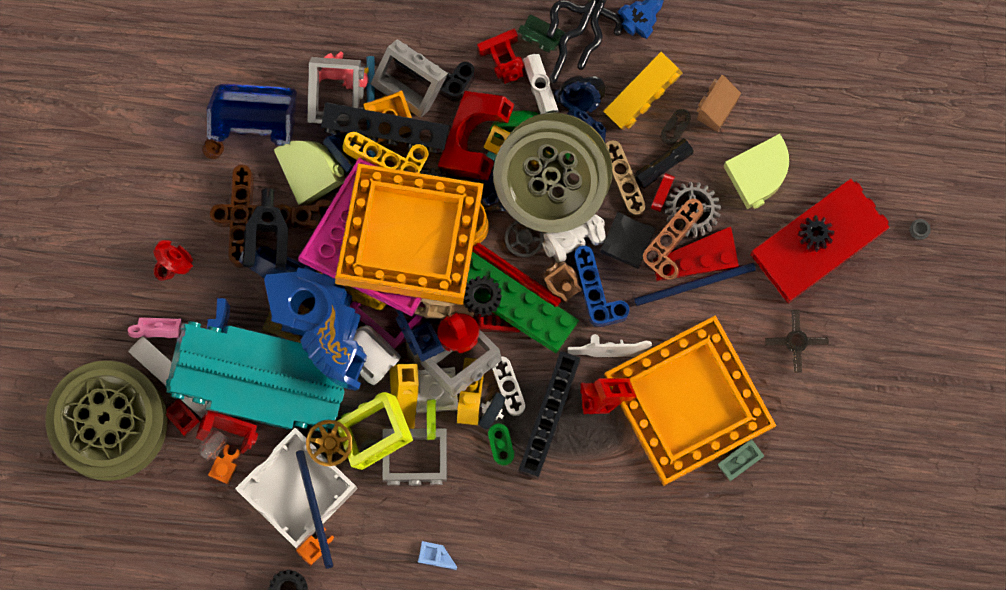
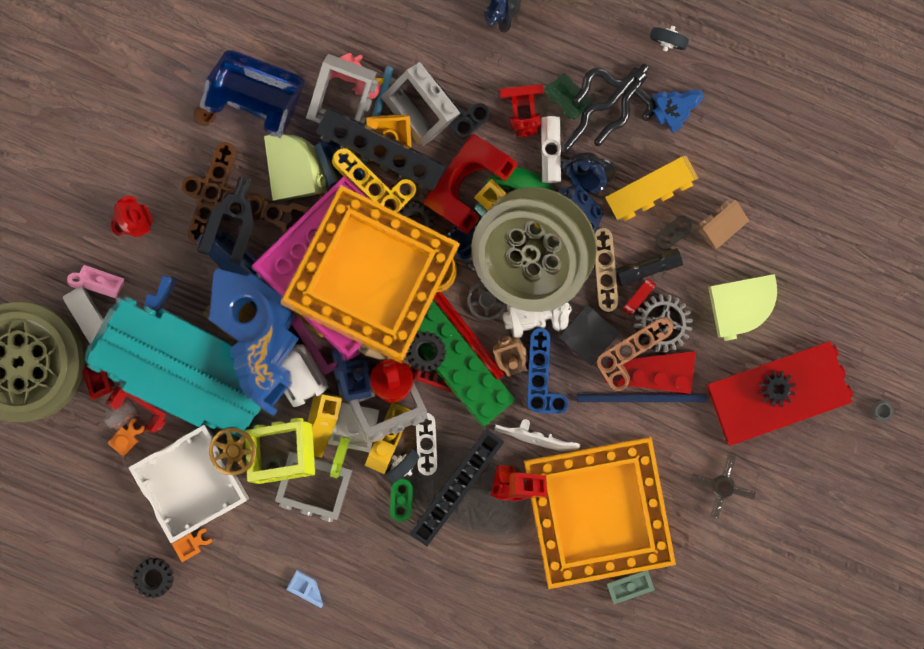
camera: 15 degrees right, 10 degrees up
(314, 509) = (199, 511): dark blue piece -> none

